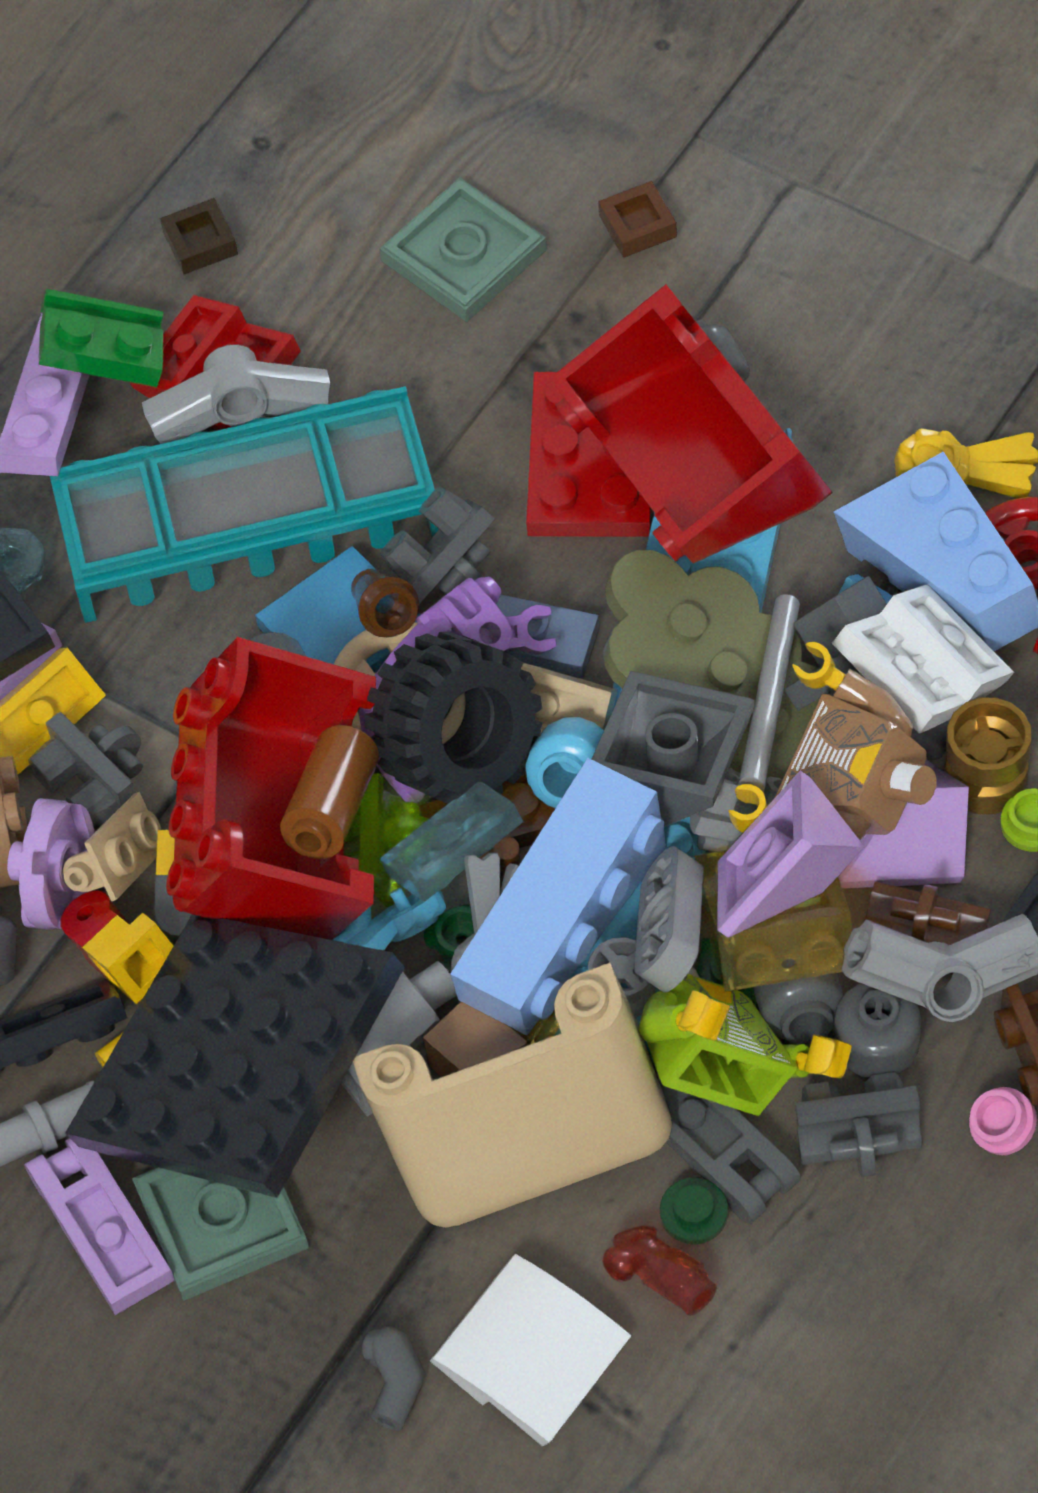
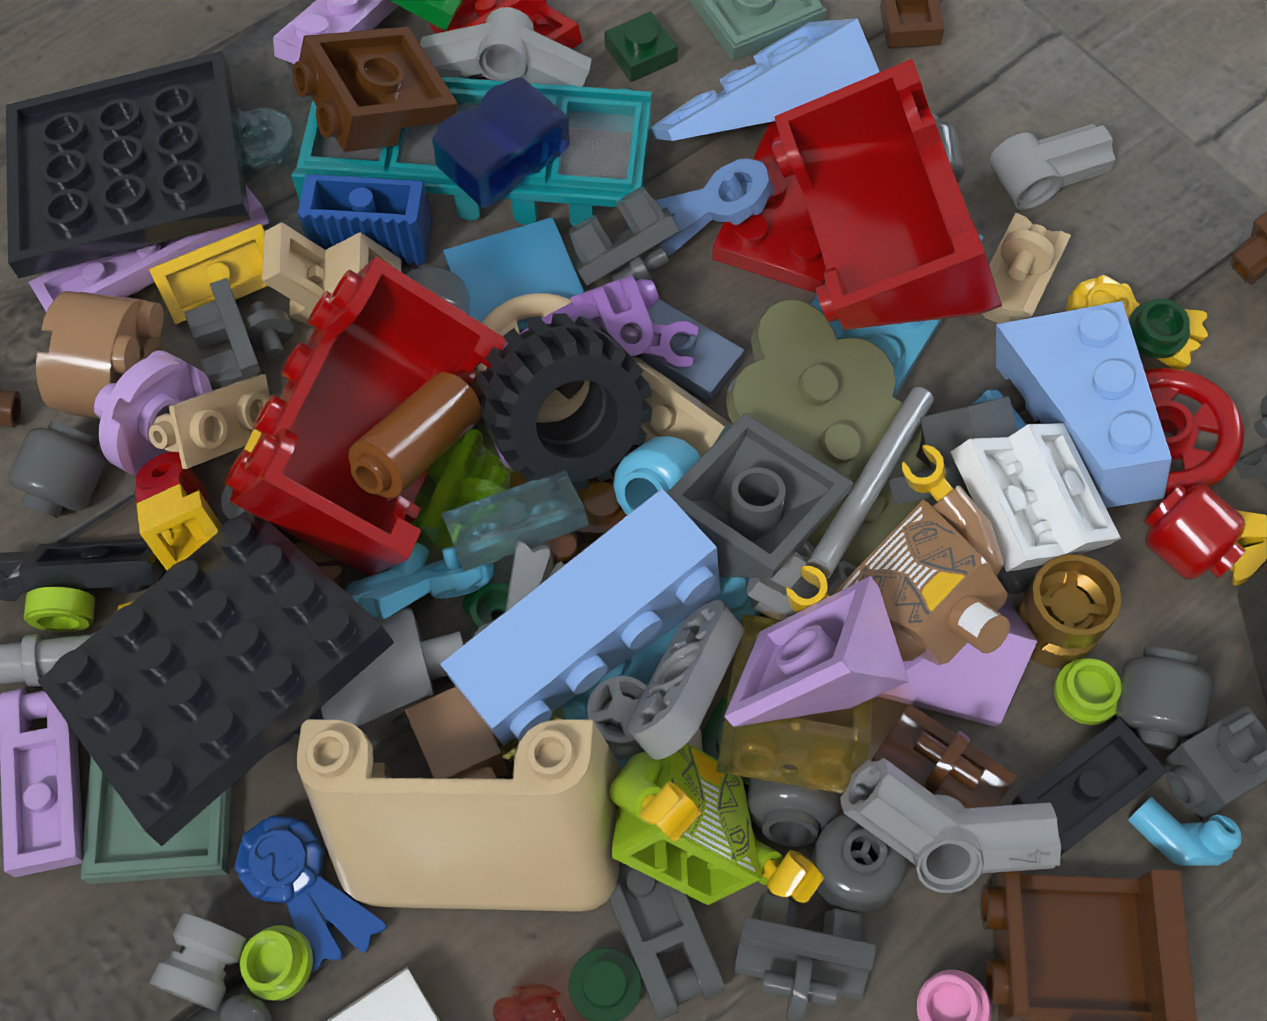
camera: 15 degrees right, 5 degrees up
(42, 1073) = (59, 609): none -> lime tile
(125, 473) = (370, 86): none -> reddish brown plate
(151, 680) = (306, 270): none -> tan brick
(169, 608) = (383, 209): none -> blue brick
(281, 486) = (501, 141): none -> clear blue brick
(325, 1317) = (199, 964): none -> light grey wheel
(362, 1215) = (284, 864): none -> blue piece
(365, 337) = (641, 46): none -> dark green plate
(384, 603) = (547, 285): reddish brown cone -> none
(394, 1294) = (276, 962): none -> lime plate
(526, 467) = (729, 196): none -> medium blue piece
(540, 322) = (786, 75): none -> light blue wedge
(822, 340) = (1037, 169): none -> light grey piece
(841, 447) = (1024, 268): none -> tan hips
(989, 464) = (1160, 328): none -> dark green plate

